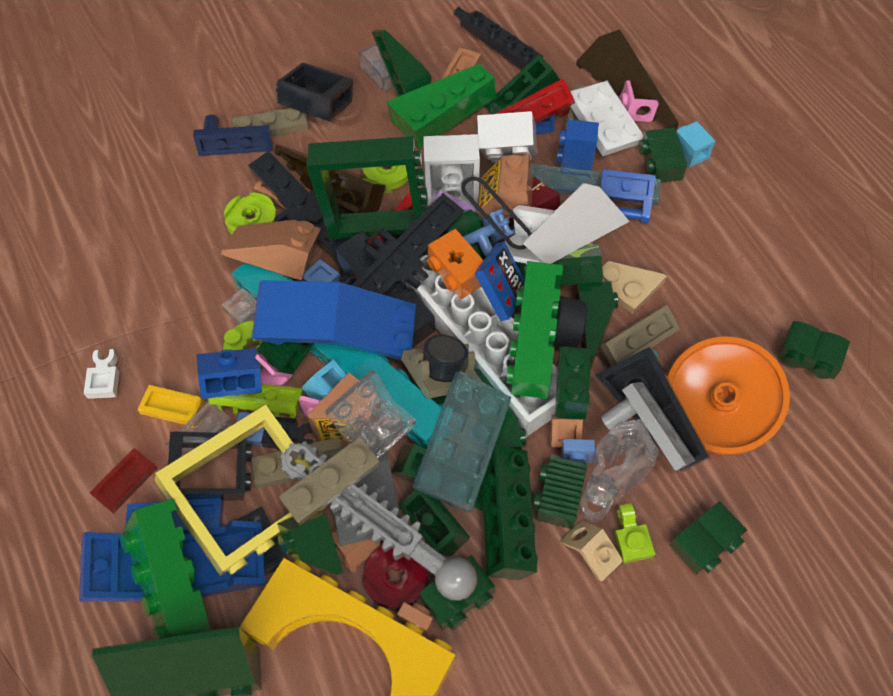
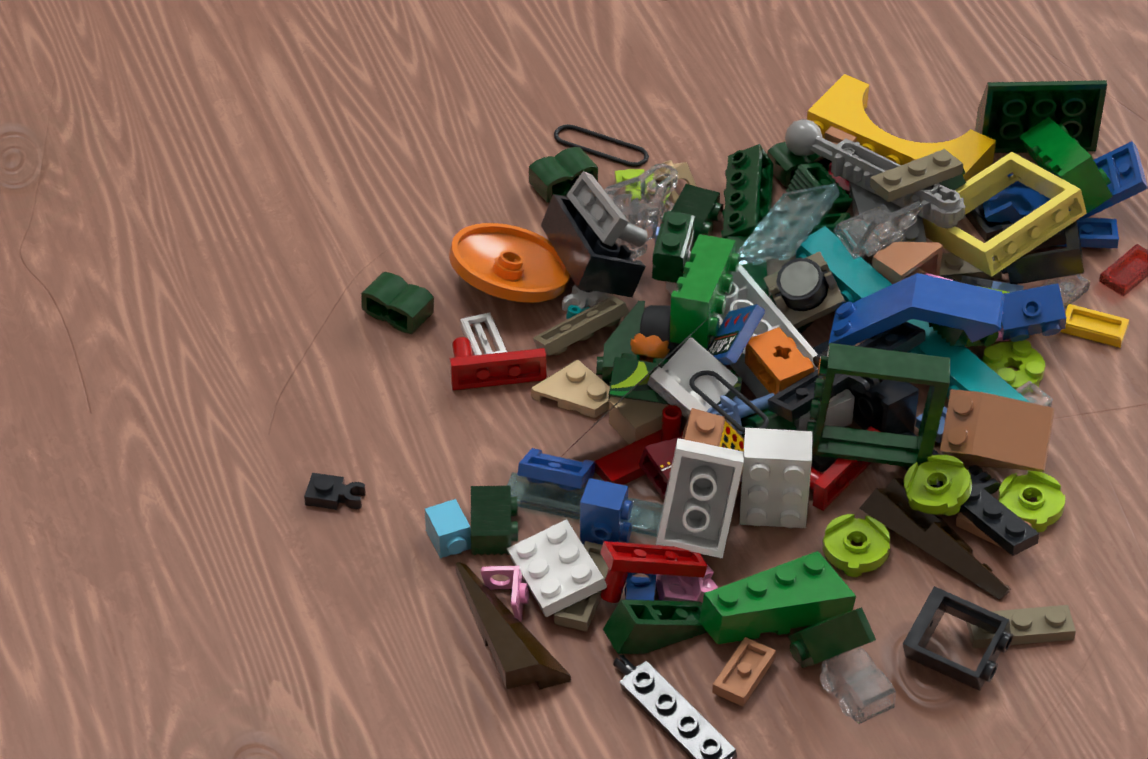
camera: 175 degrees left, 15 degrees down
(232, 140) = (1096, 594): dark blue piece -> none
(307, 195) = (939, 500): none -> lime plate
(582, 283) = (649, 347): none -> orange plate
(677, 621) = (633, 164): none -> black piece
(713, 325) = (467, 331): none -> white tile
(720, 282) = (495, 368): none -> red piece
(792, 173) = (330, 490): none -> black plate

